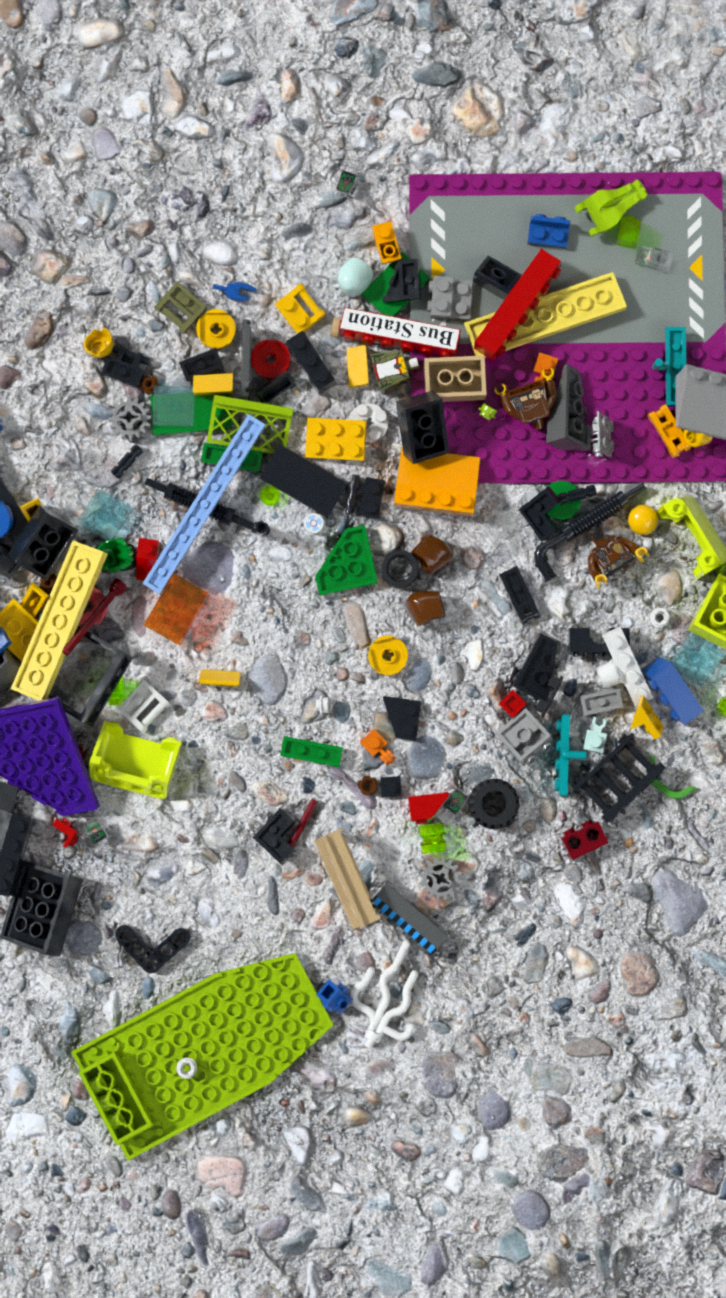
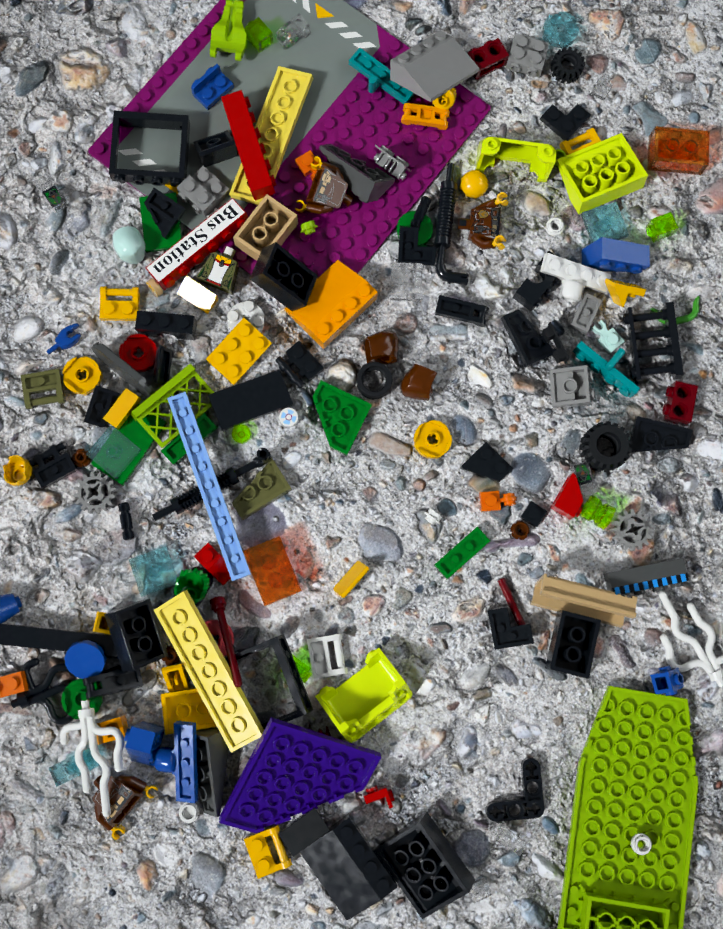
camera: 65 degrees left, 5 degrees down
(99, 836) = (402, 772): leg -> none
(235, 550) = (262, 491): none -> olive wing
(305, 897) = (573, 644): none -> black brick
(386, 242) = (122, 202): light orange slope -> none
(476, 207) = (155, 121): none -> black window
(512, 703) = (539, 377): red plate -> none
(538, 838) = (657, 435): none -> black wing

